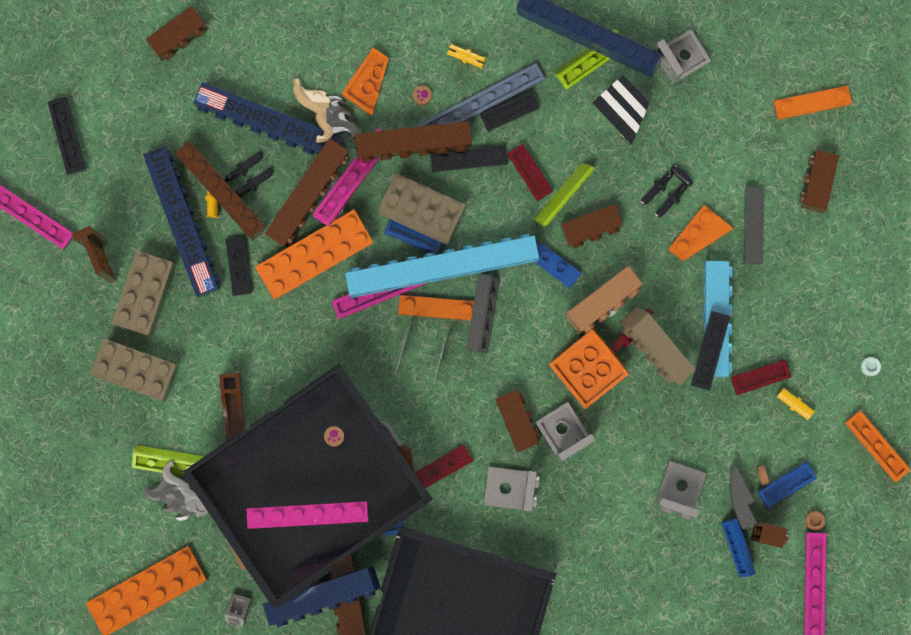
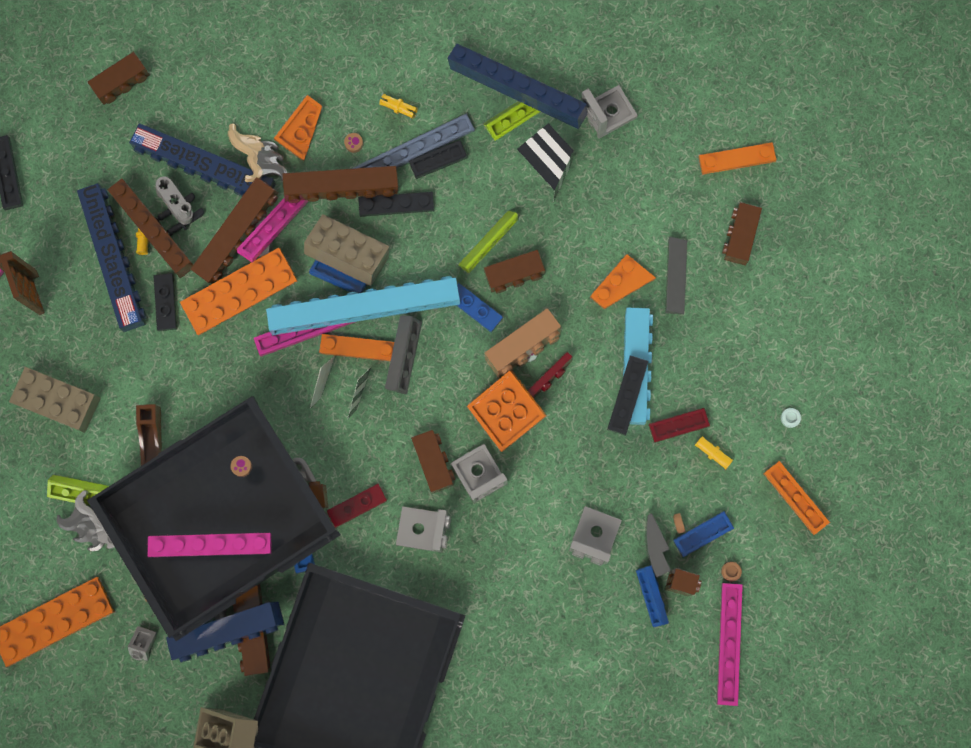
camera: 10 degrees right, 5 degrees down
(144, 293) = (69, 325): dark tan brick -> none
(247, 172) = (182, 210): none -> light grey beam
(530, 172) = (455, 218): dark red plate -> none
(657, 346) = (574, 389): dark tan brick -> none
(673, 198) = (606, 225): black piece -> none

